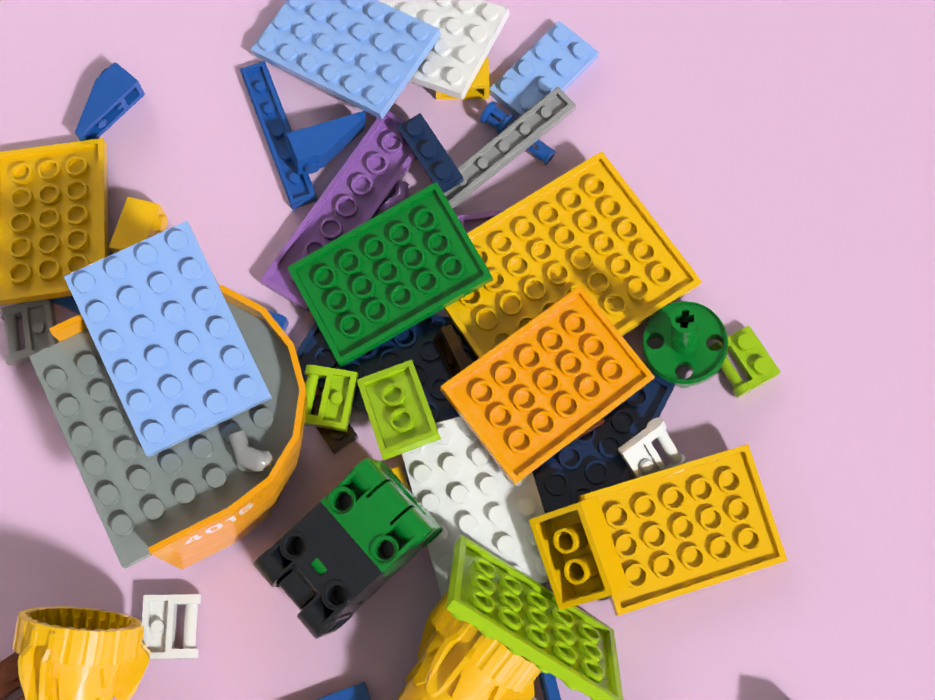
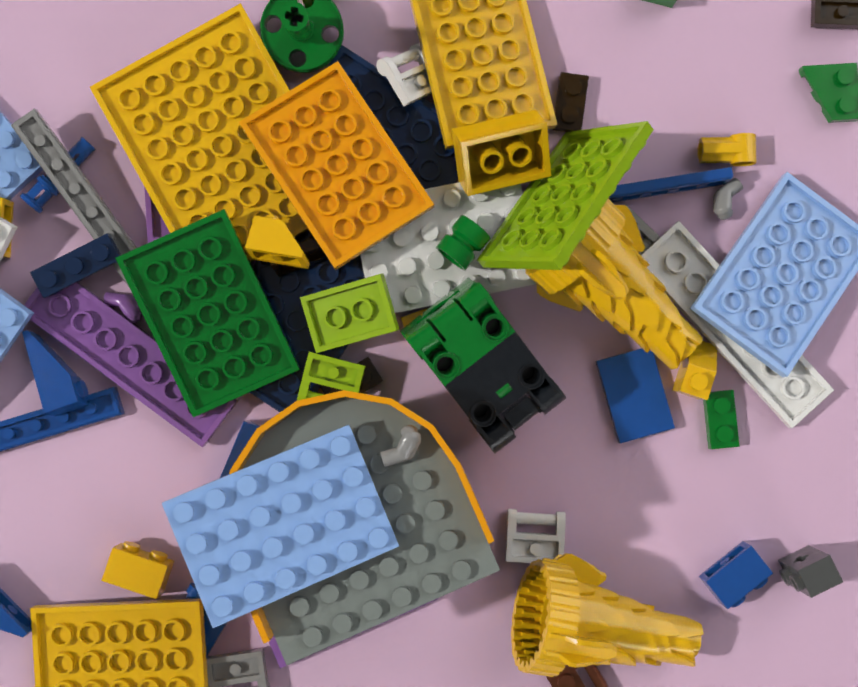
camera: 80 degrees left, 15 degrees up
(463, 327) = (273, 243): none -> yellow slope
(478, 518) = (463, 242): none -> green wheel
(645, 632) = (570, 101): none -> dark brown plate

